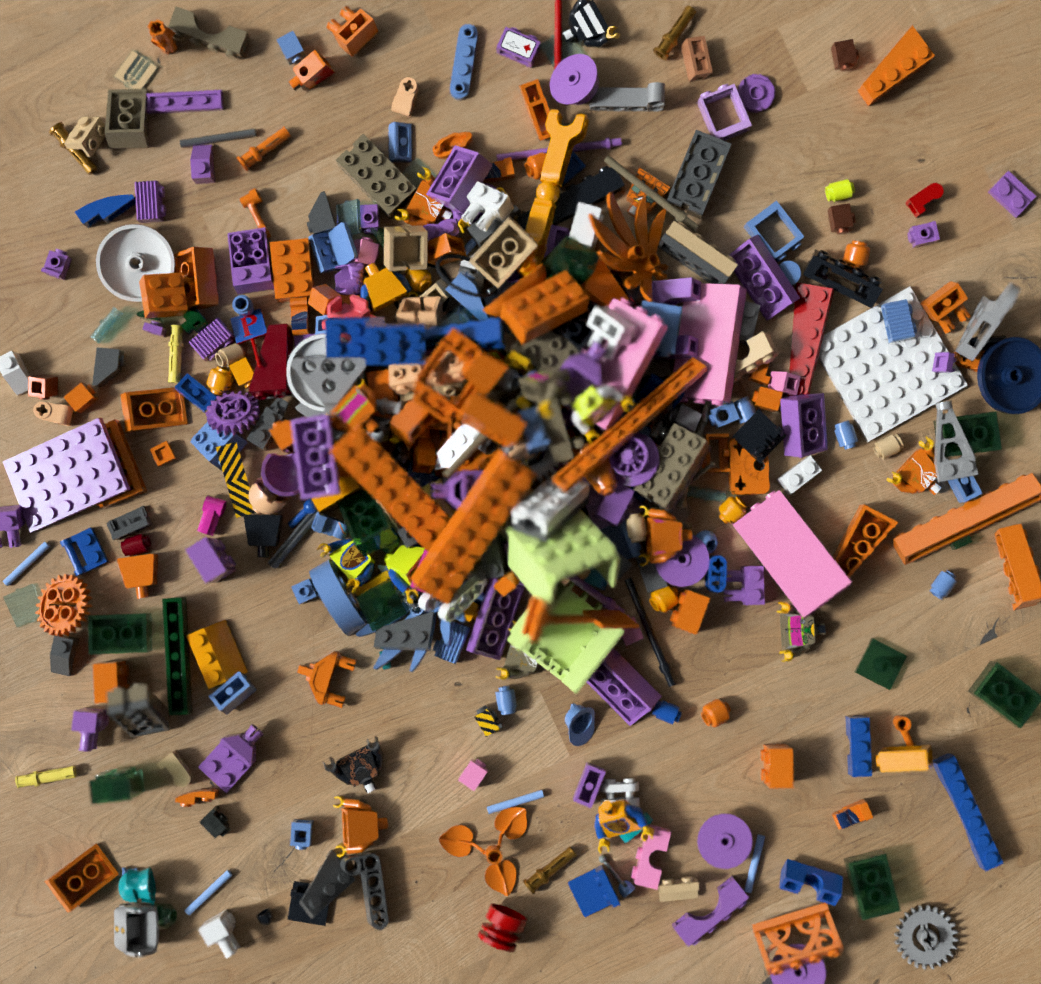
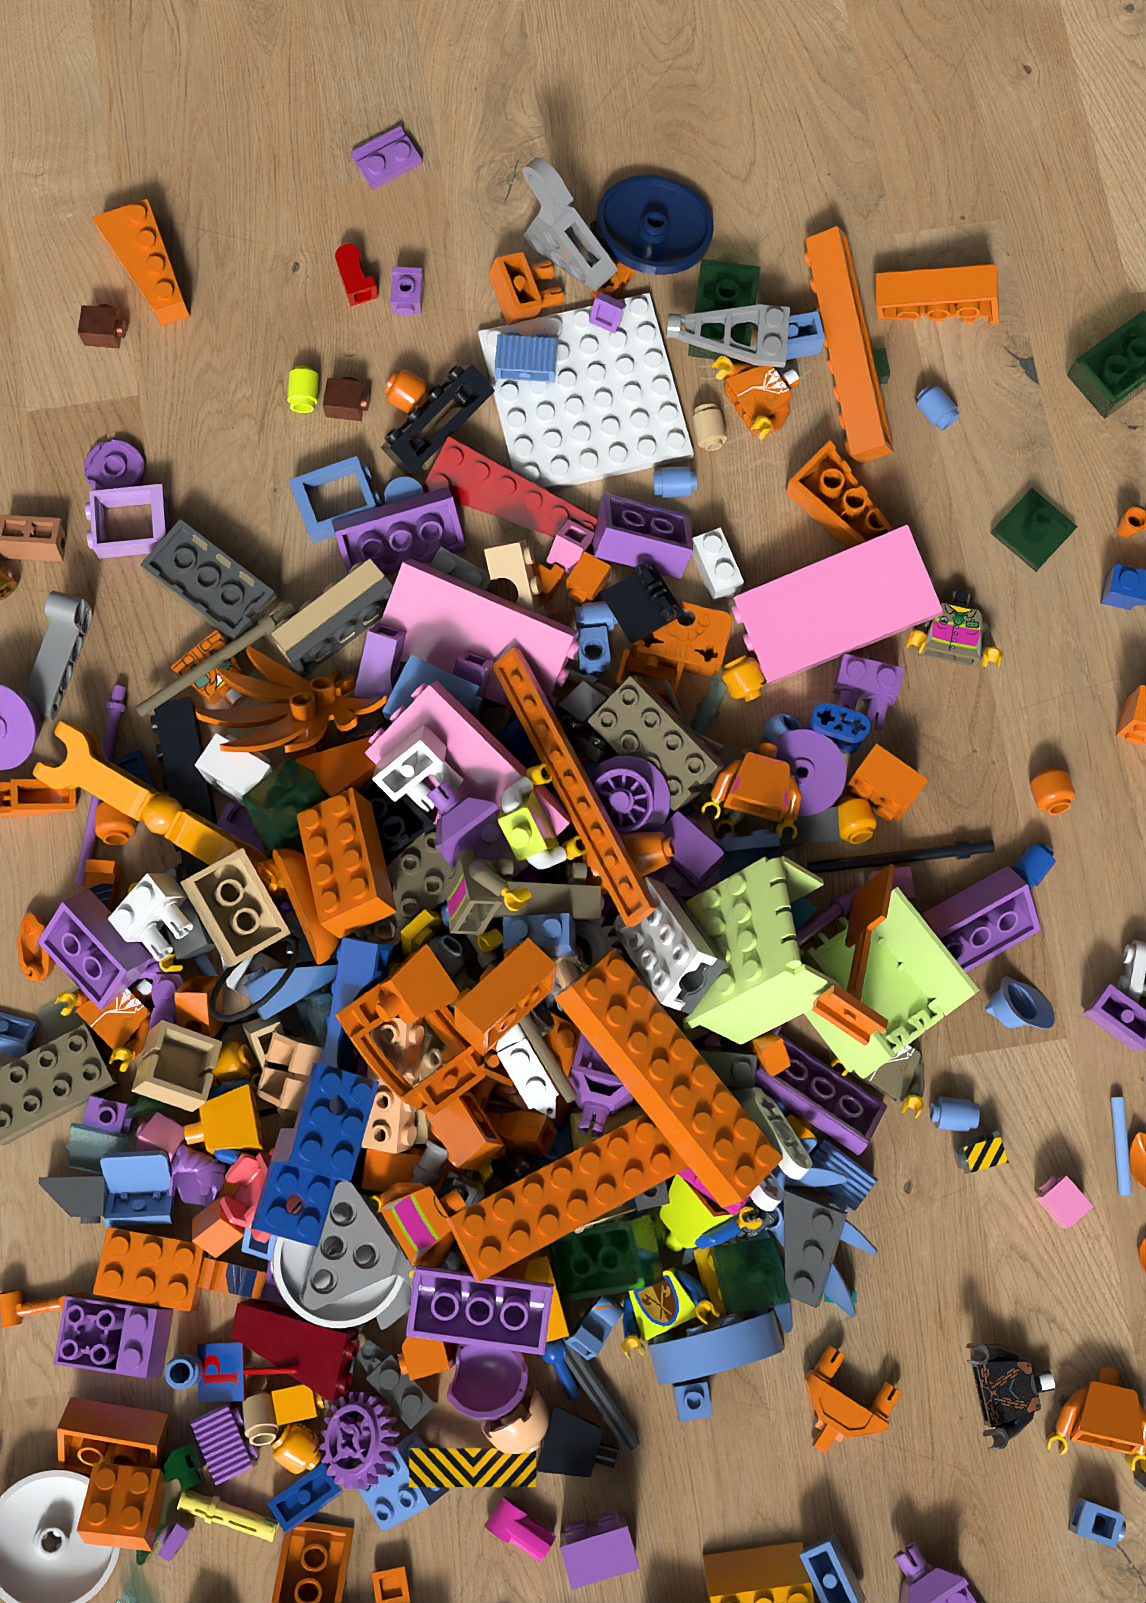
camera: 80 degrees left, 10 degrees down
(636, 528) = (736, 825): tan brick -> none

